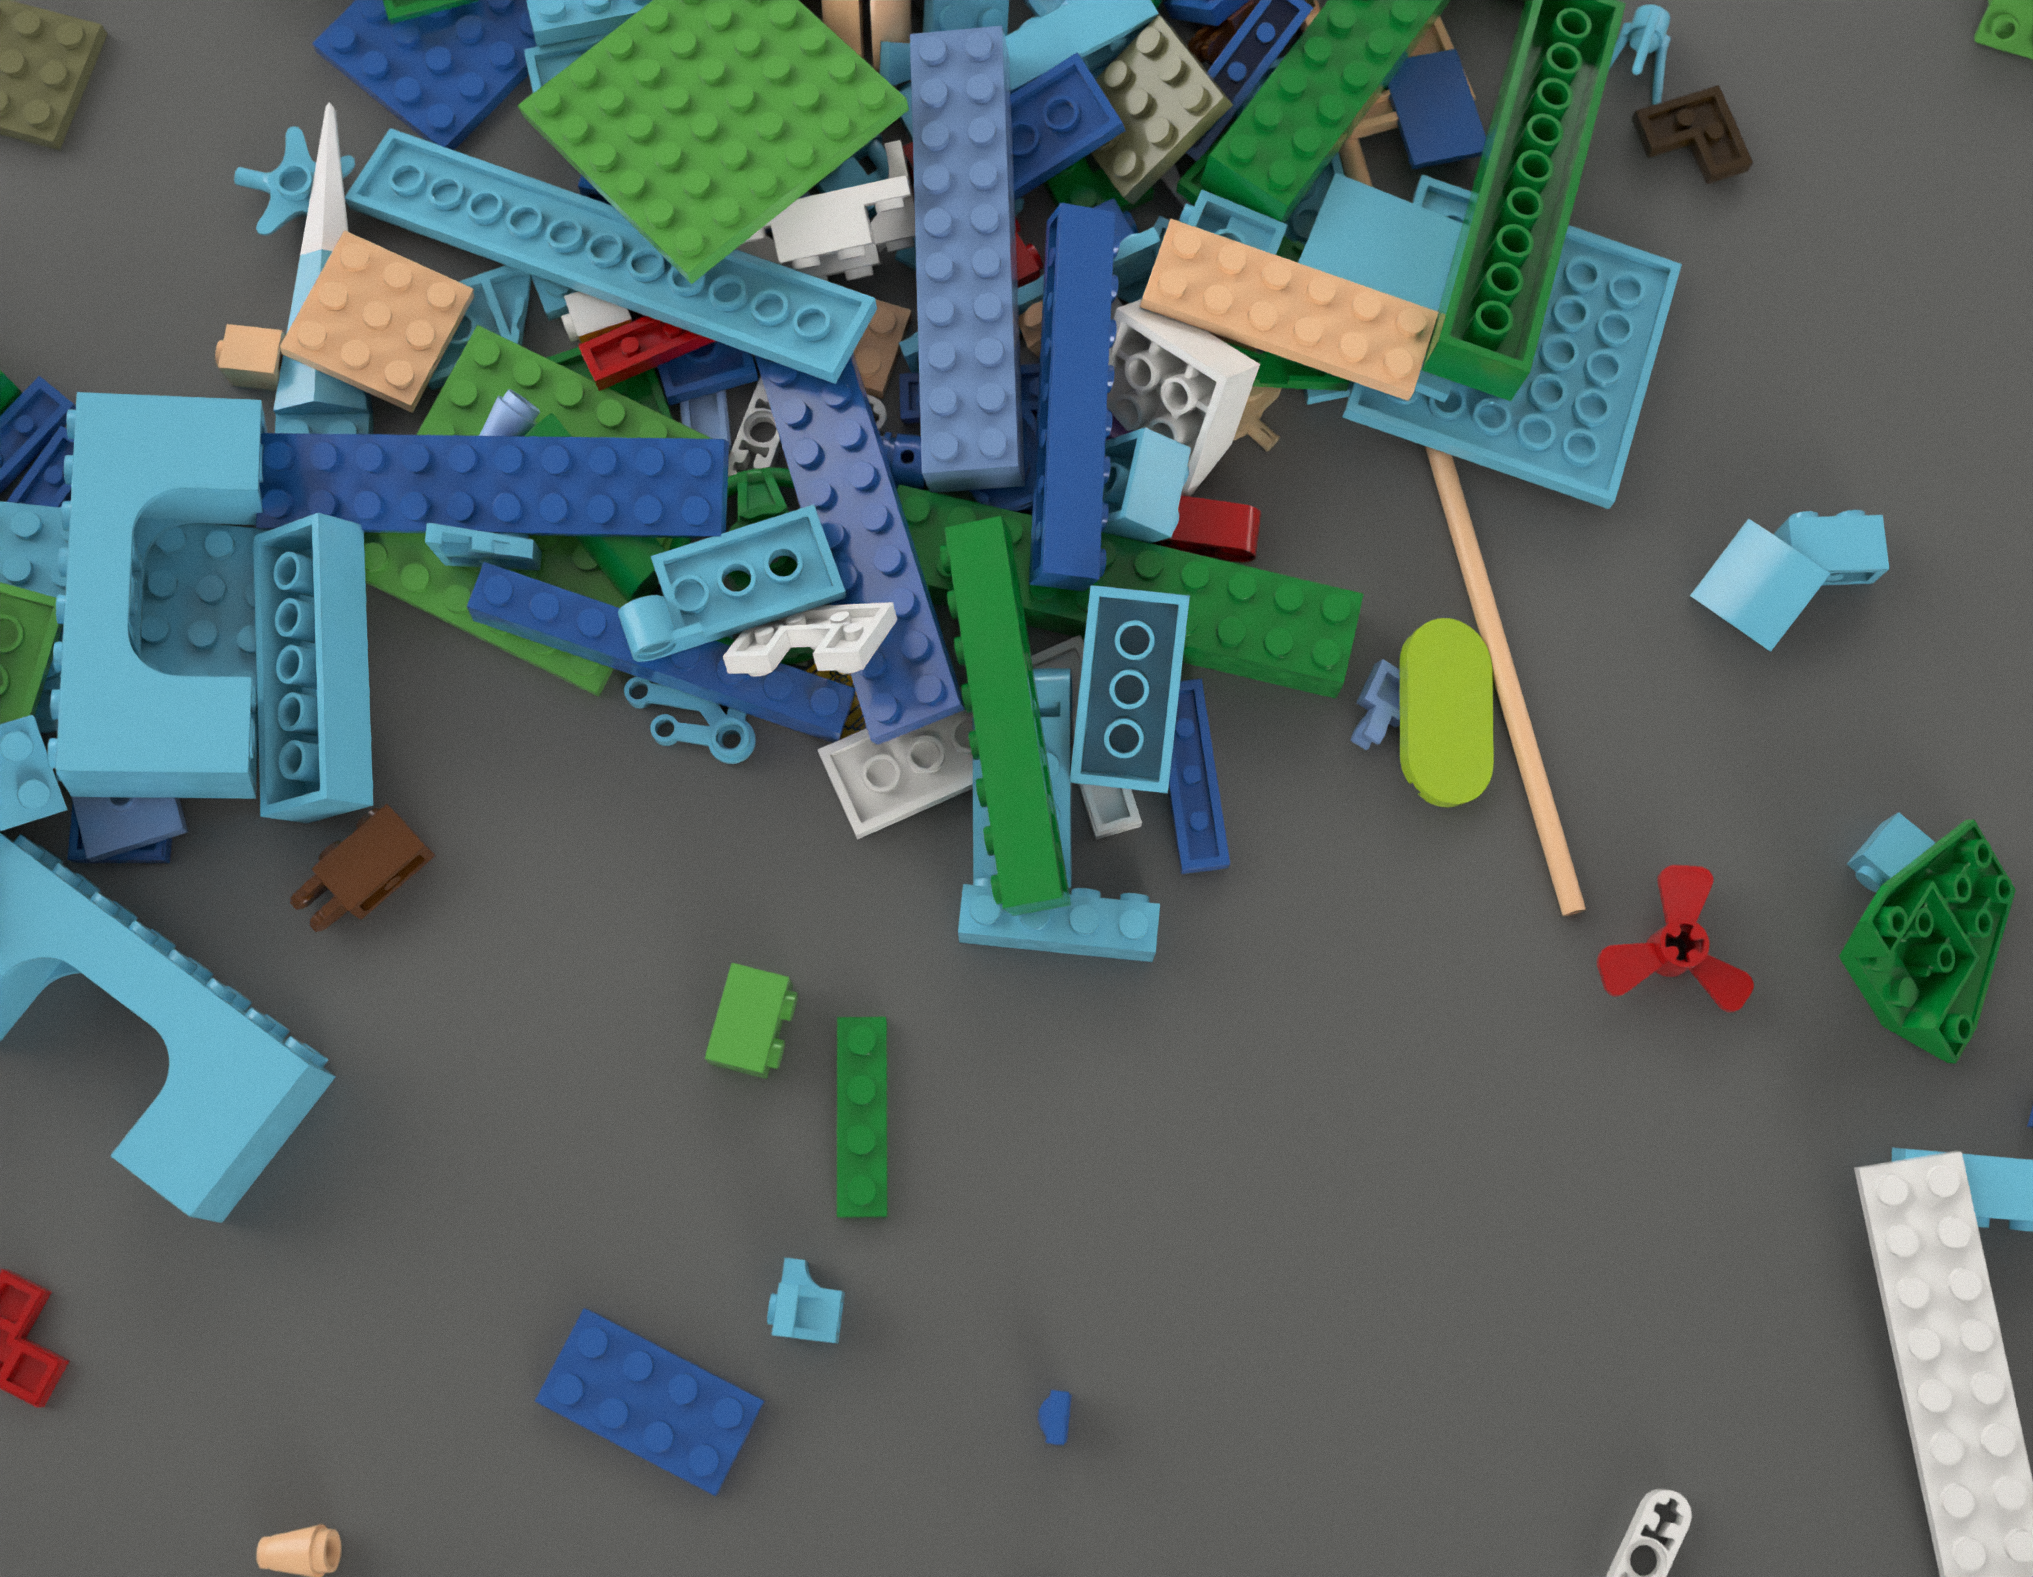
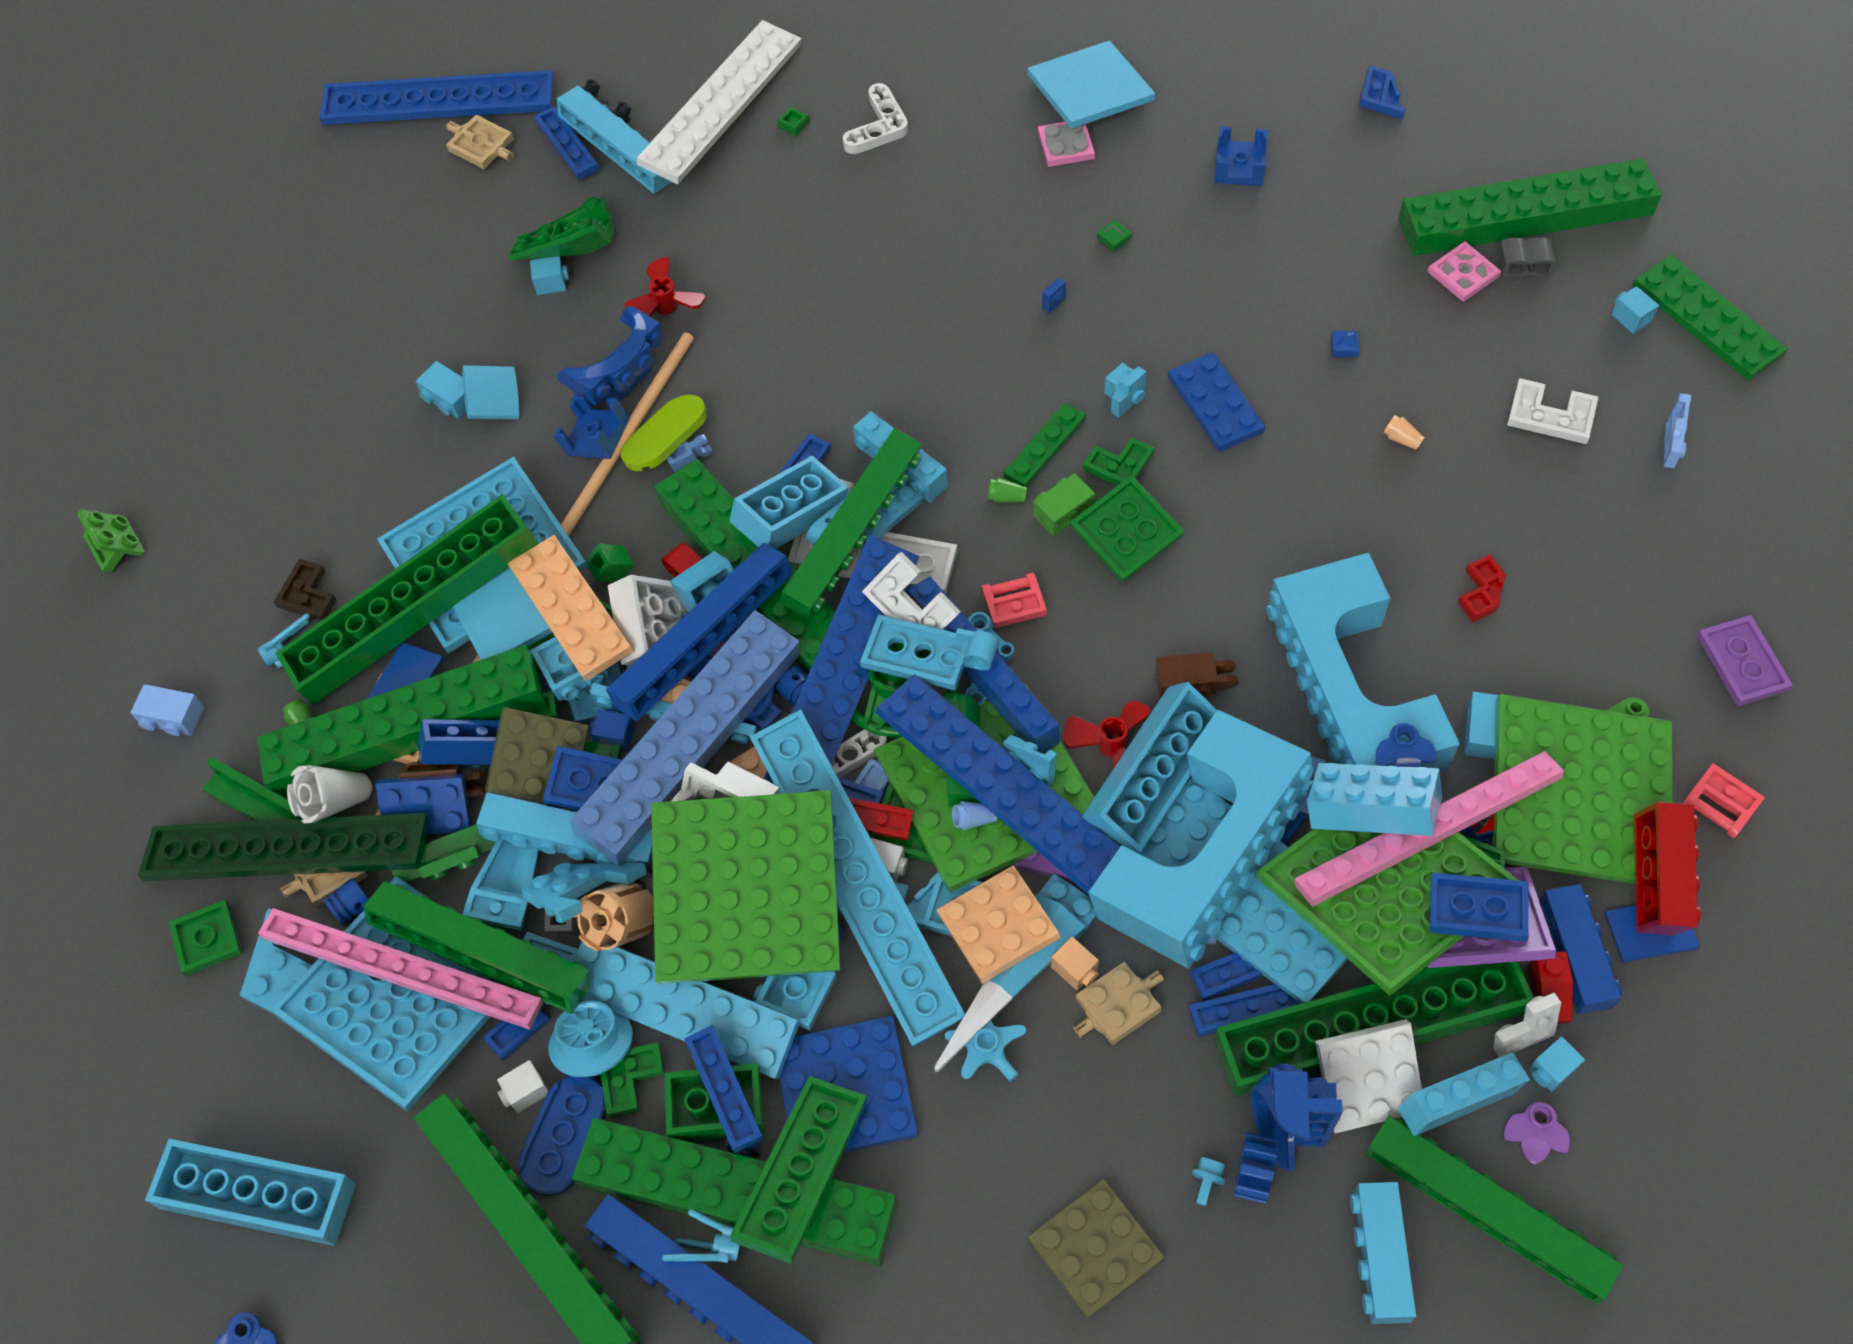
camera: 135 degrees left, 15 degrees down
(170, 348) = (1118, 1003): none -> tan plate
(410, 742) = (1083, 733): none -> red piece
(621, 1042) = (1127, 529): none -> green plate
(697, 804) = (1016, 606): none -> coral plate
(706, 1151) = (1118, 468): none -> green plate
(856, 983) = (1005, 491): none -> bright green cone
(1321, 449) = (609, 563): none -> green brick
(1547, 636) = (595, 431): none -> blue panel
(1607, 757) = (623, 367): none -> blue piece
(1810, 1483) = (793, 121): none -> green tile

